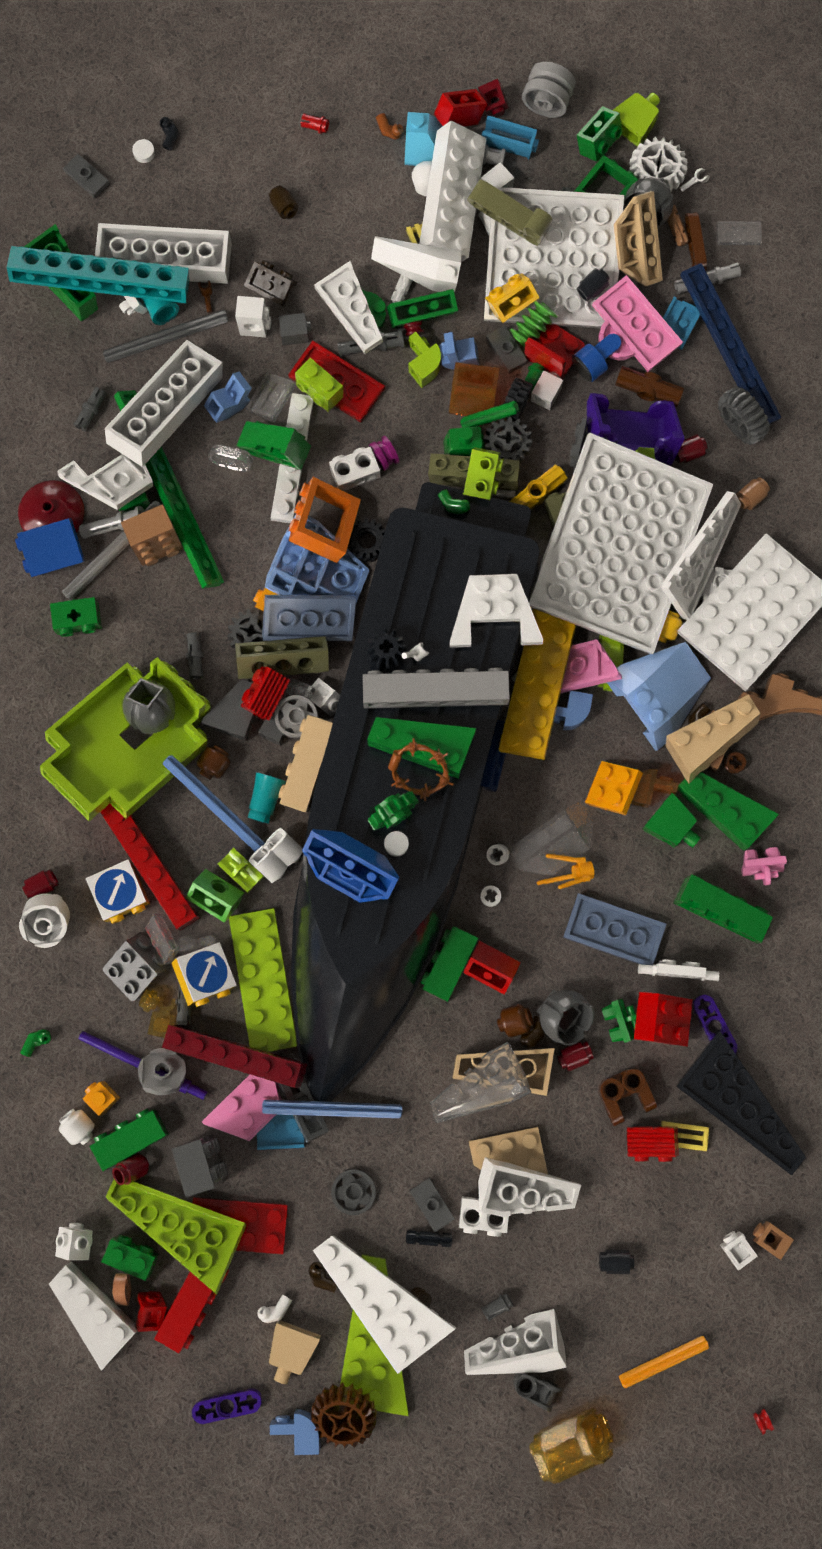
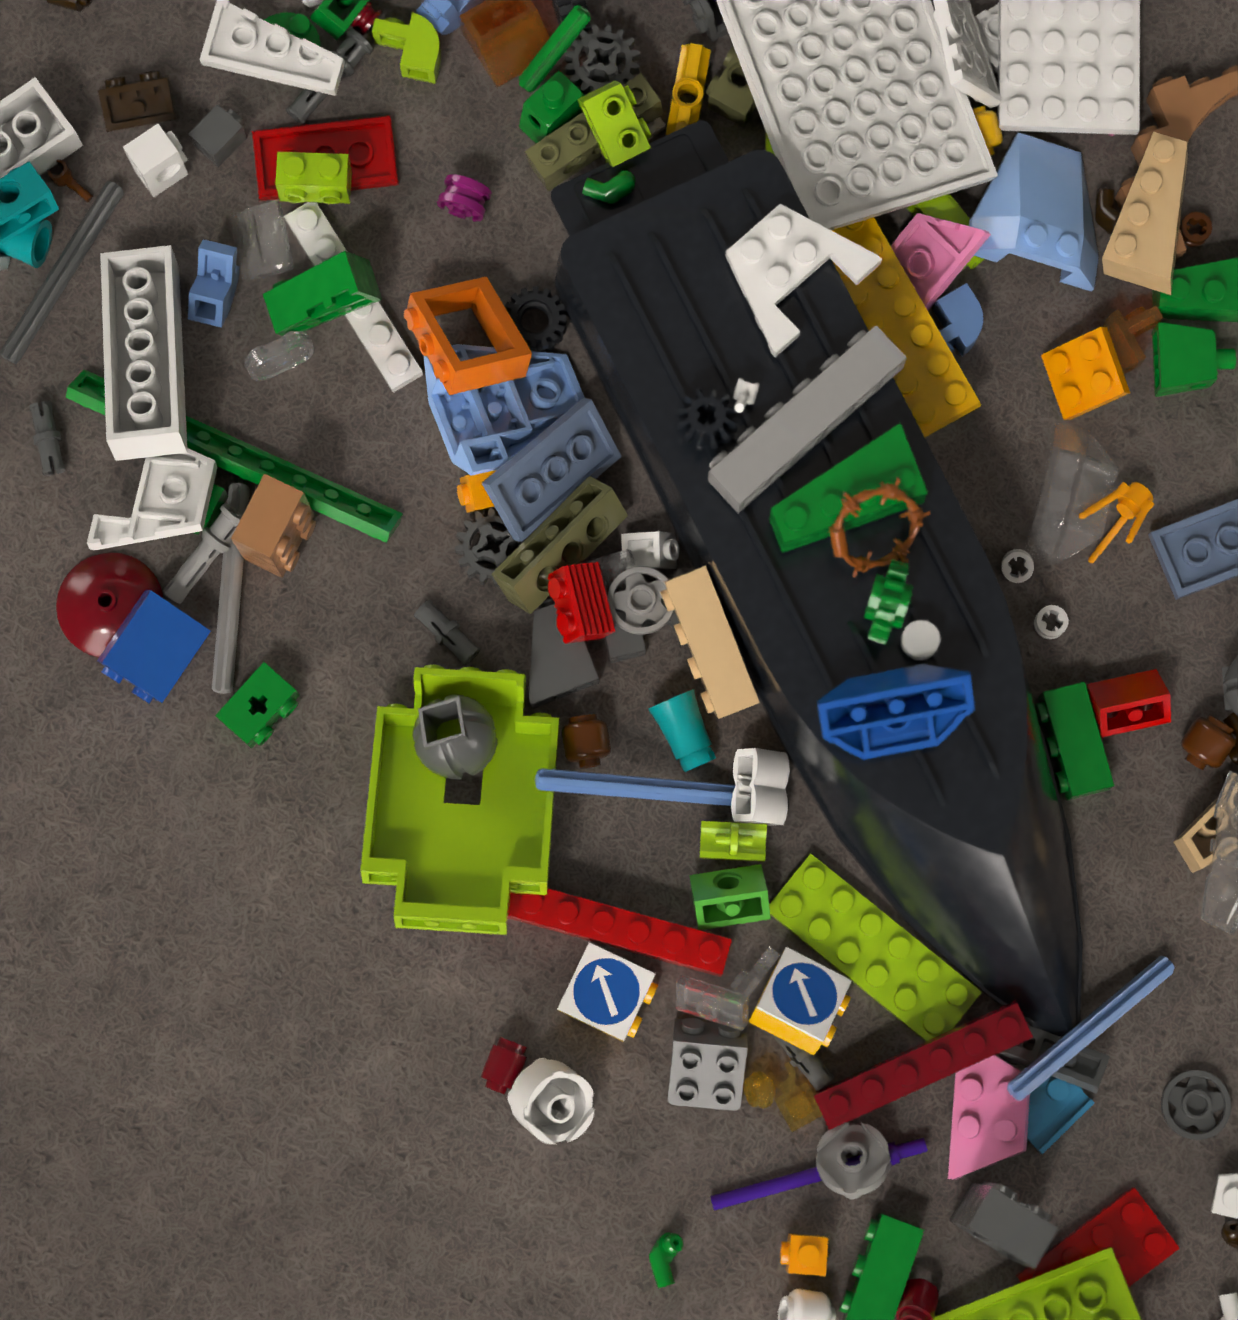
camera: 45 degrees left, 0 degrees up
(357, 474) = (452, 249): white brick -> none

